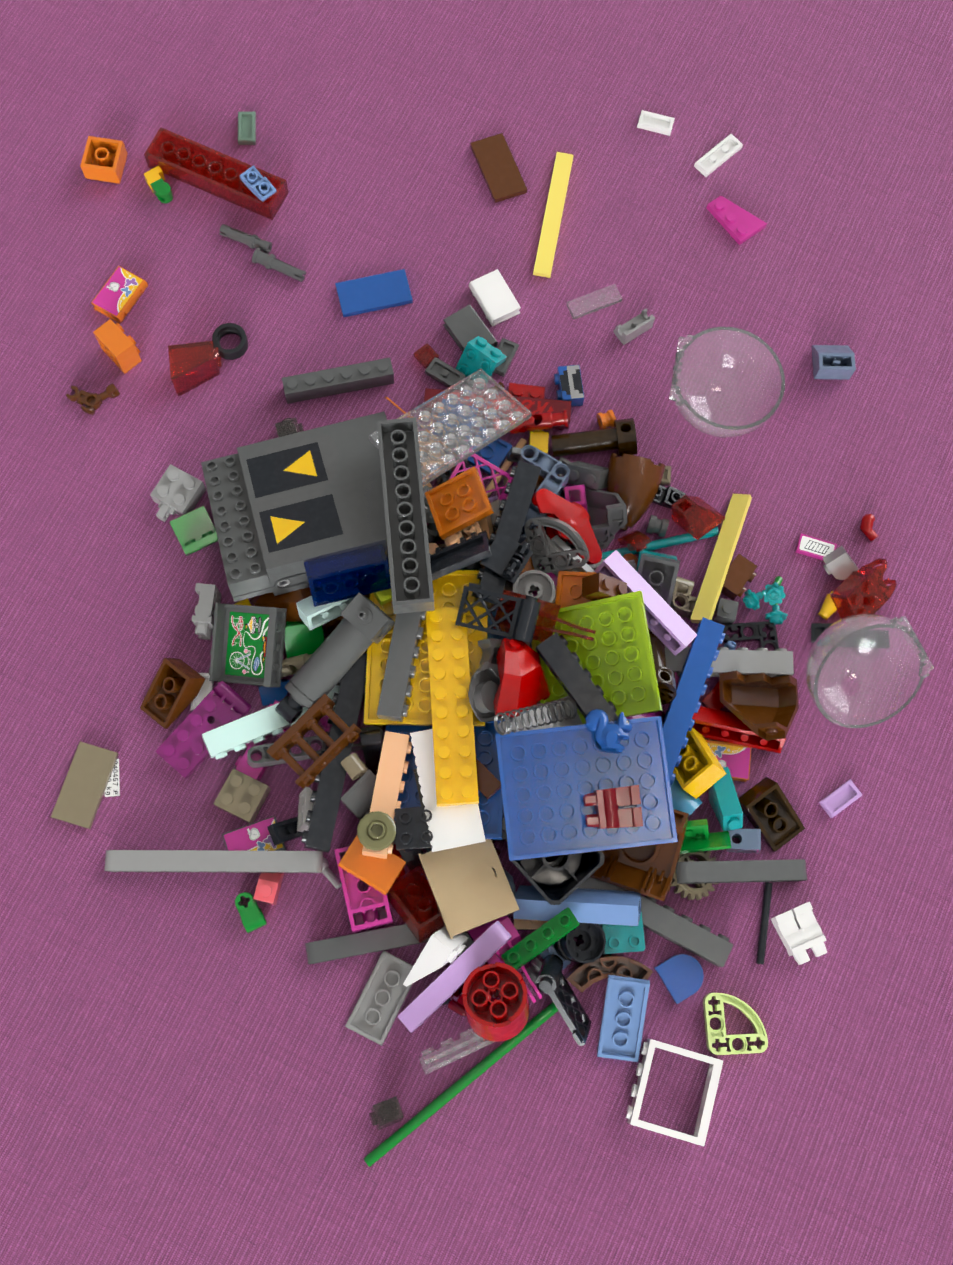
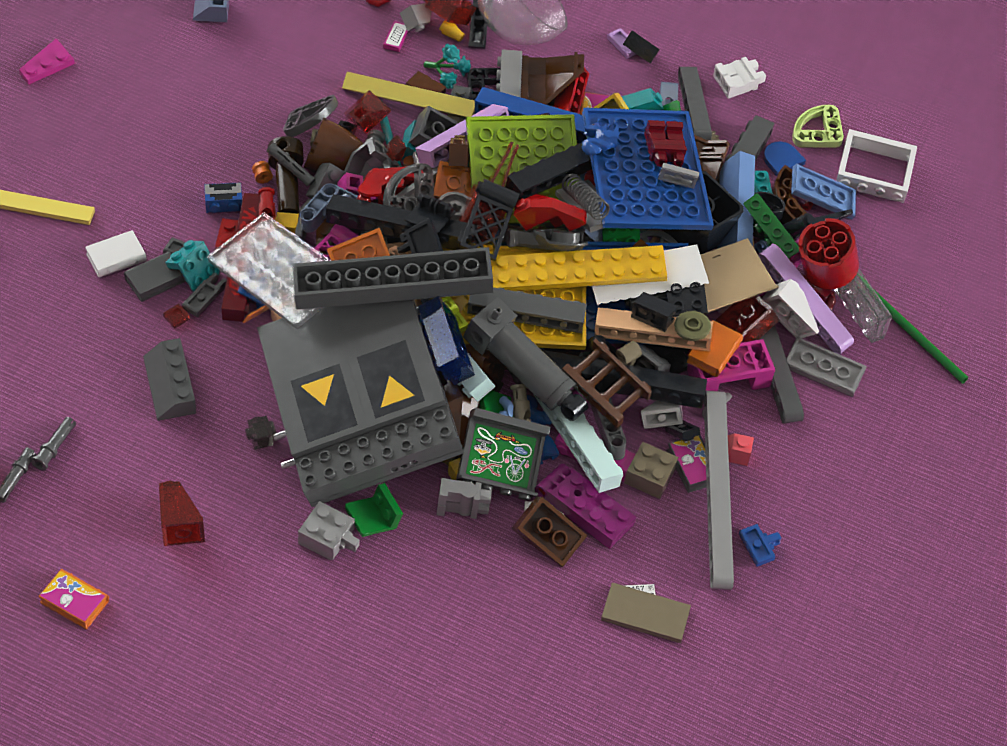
camera: 90 degrees left, 20 degrees down
(91, 400) = (208, 623): reddish brown piece -> none
(117, 345) = (147, 588): orange brick -> none
(155, 903) = (759, 544): none -> blue hinge
(230, 328) = (142, 474): black tyre -> none
(252, 915) = (759, 466): green piece -> none
(291, 648) = (507, 405): none -> medium blue arm
(338, 380) = (203, 387): dark grey brick -> none
(348, 351) = (169, 380): none -> dark grey slope
(374, 293) = (97, 359): blue tile -> none
(386, 1113) = (923, 359): clear smoke brick -> none
(395, 790) = (653, 311): none -> black hinge
(567, 819) = (678, 175): none -> light grey tile
(594, 301) = (127, 176): clear tile -> none
(602, 437) = (285, 160): none -> dark grey pin
(634, 327) = (161, 145): light grey hinge -> none
(691, 466) = (309, 115): none -> dark grey beam
(726, 381) = (246, 62): clear windscreen -> none
(764, 923) = (735, 101): black bar -> none
(771, 812) = (635, 80): dark brown slope -> none
(828, 820) = (641, 46): none -> black hinge

